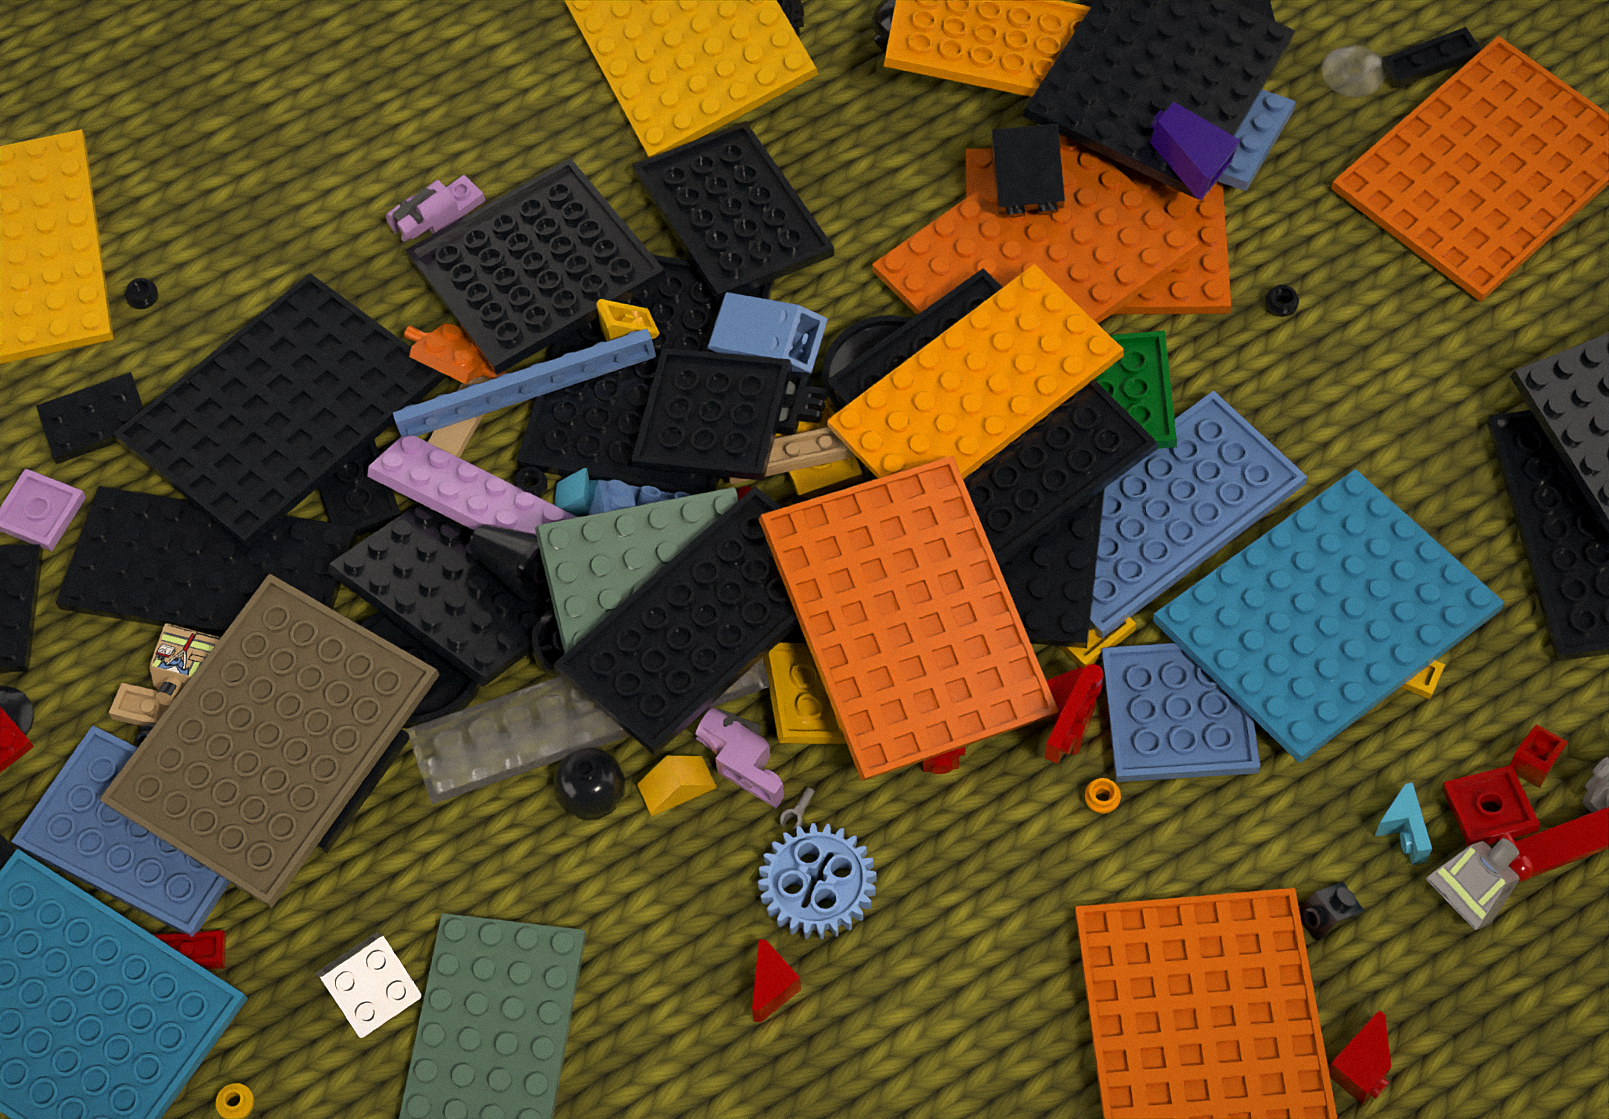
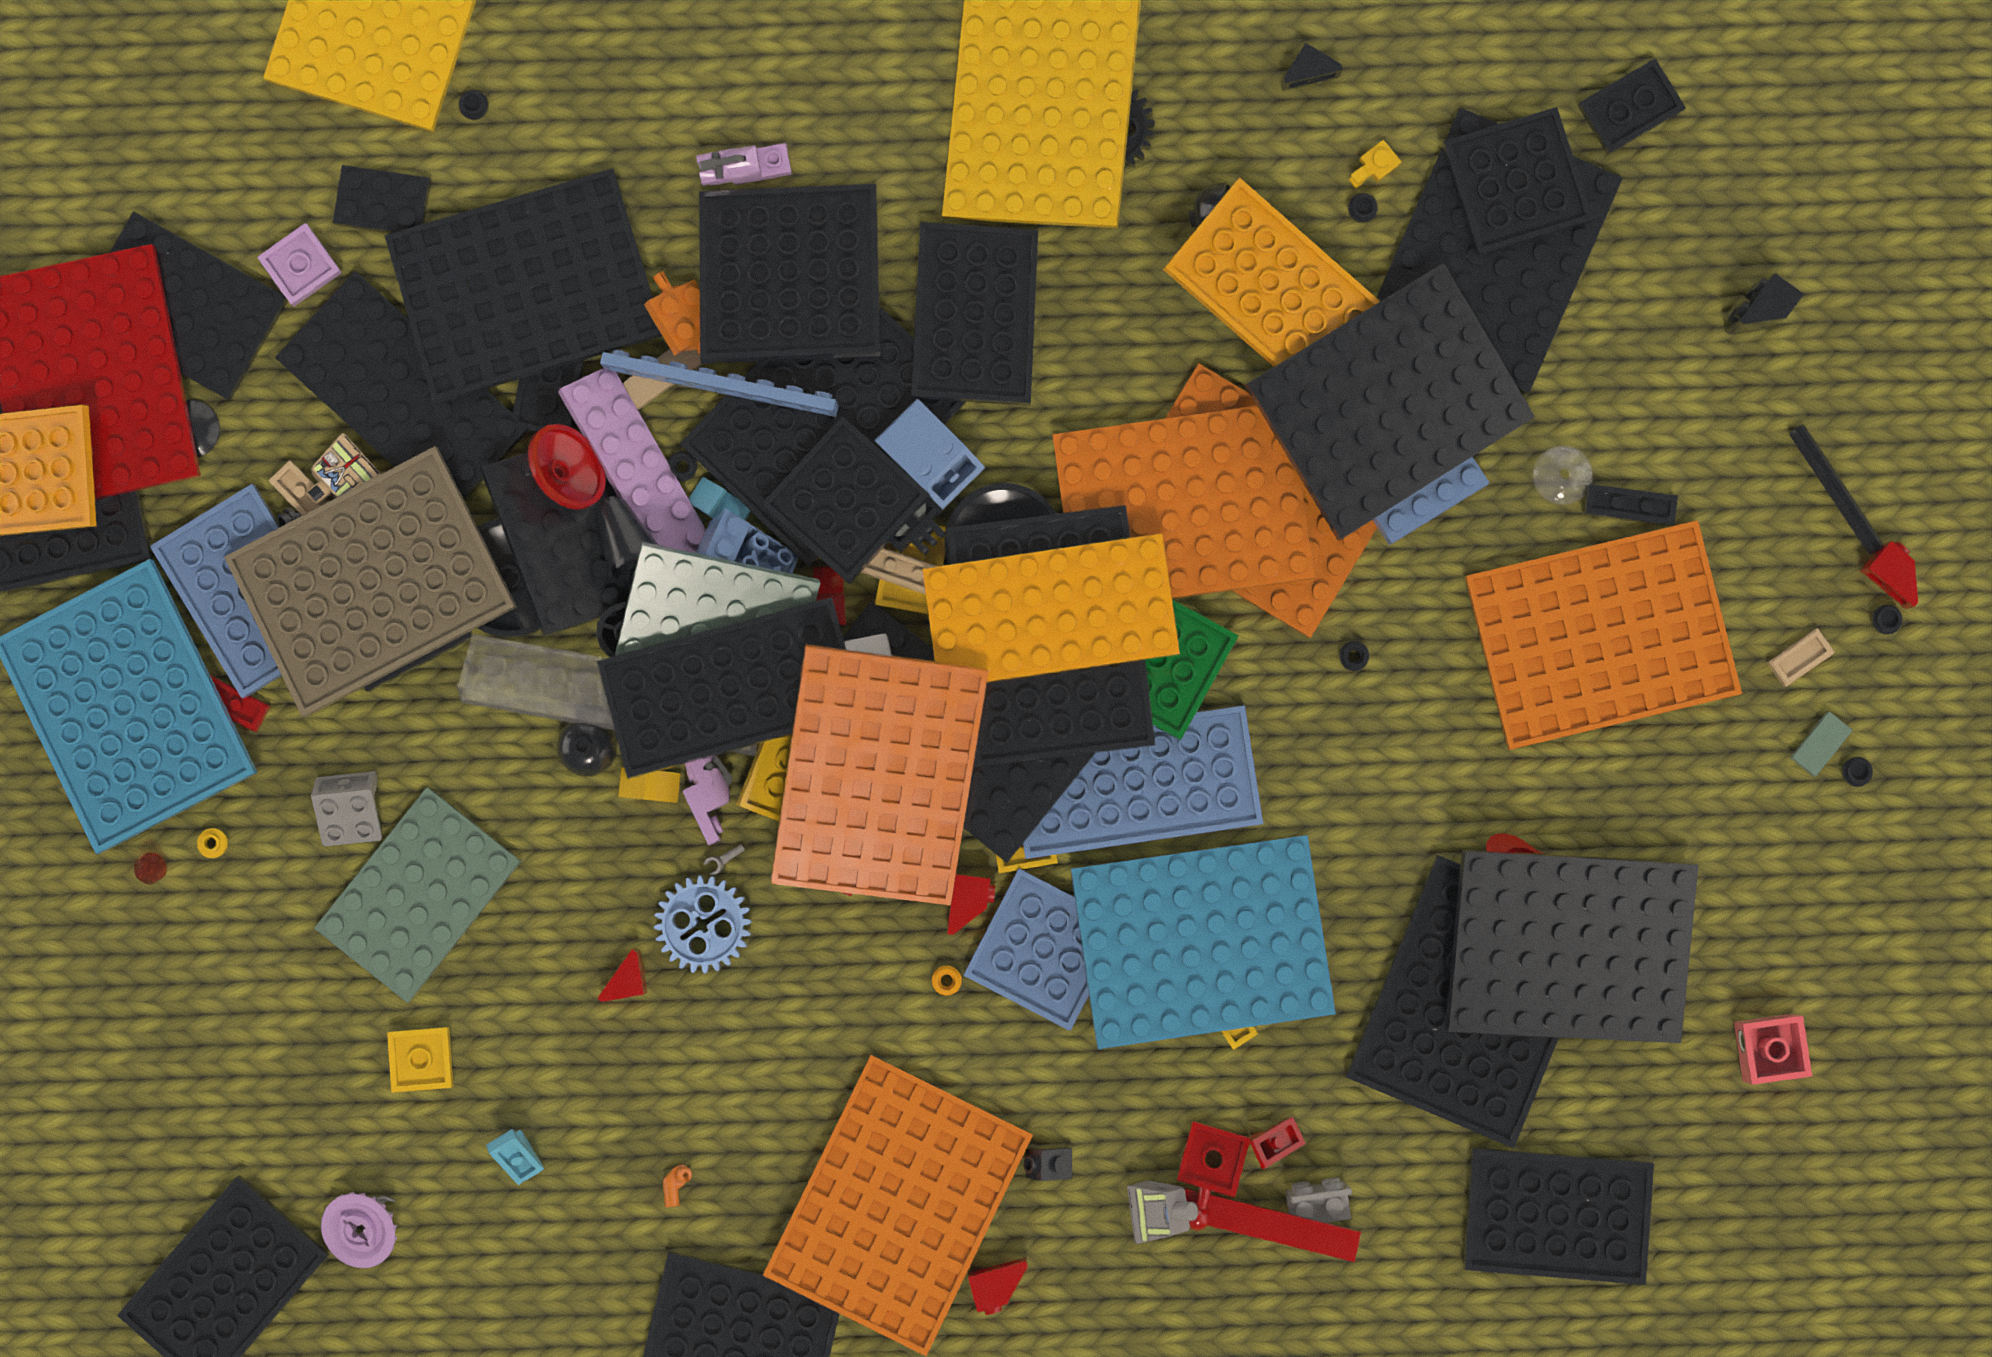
camera: 30 degrees right, 25 degrees up
(415, 520) = (566, 466): none -> red dish
(620, 319) = (828, 376): yellow slope -> none
(1027, 170) = (1217, 435): black slope -> none
(1074, 712) = (957, 918): red plate -> none
(1193, 147) = (1354, 504): dark purple slope -> none
(1406, 818) = (1147, 1127): medium azure slope -> none

